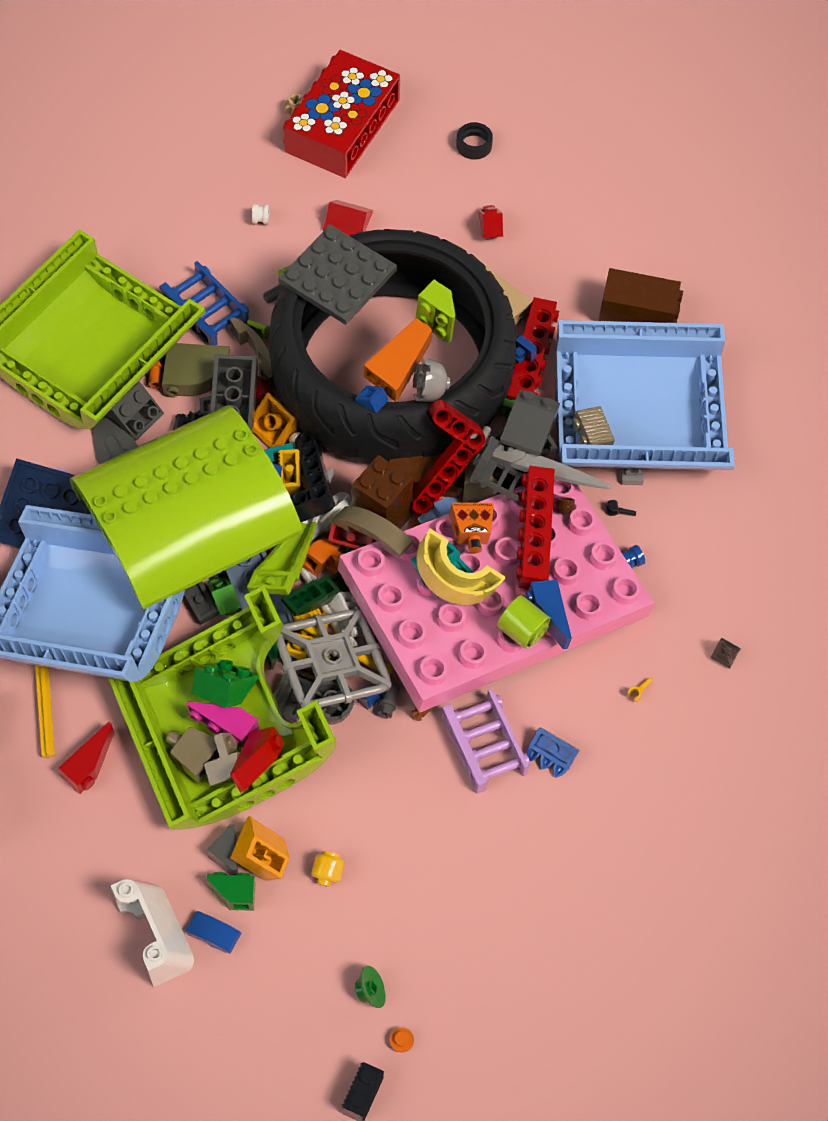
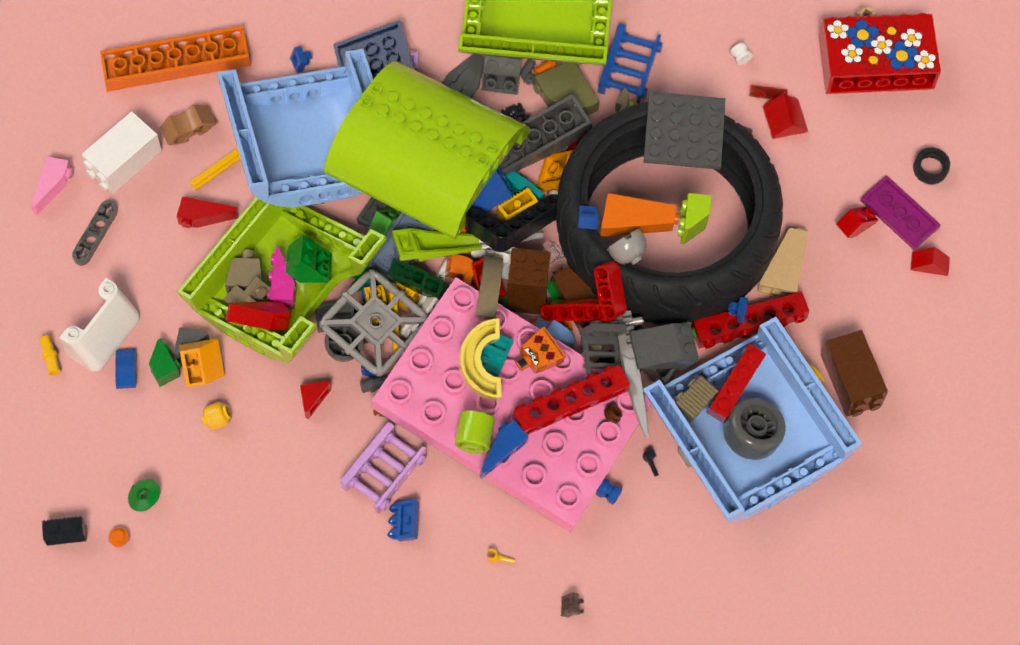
camera: 60 degrees right, 5 degrees up
(29, 882) = (91, 231): none -> dark grey beam
(144, 1003) = (49, 355): none -> yellow pin
(156, 393) = (526, 72): none -> dark grey arm
(313, 217) = (766, 92): none -> clear red slope
(353, 470) = (555, 251): none -> clear tile
(366, 766) = (313, 395): none -> red slope
(502, 188) = (900, 212): none -> magenta tile
(563, 194) = (930, 261): none -> red slope
(597, 388) = (736, 383): none -> red brick
(649, 403) = (754, 428): none -> dark grey wheel

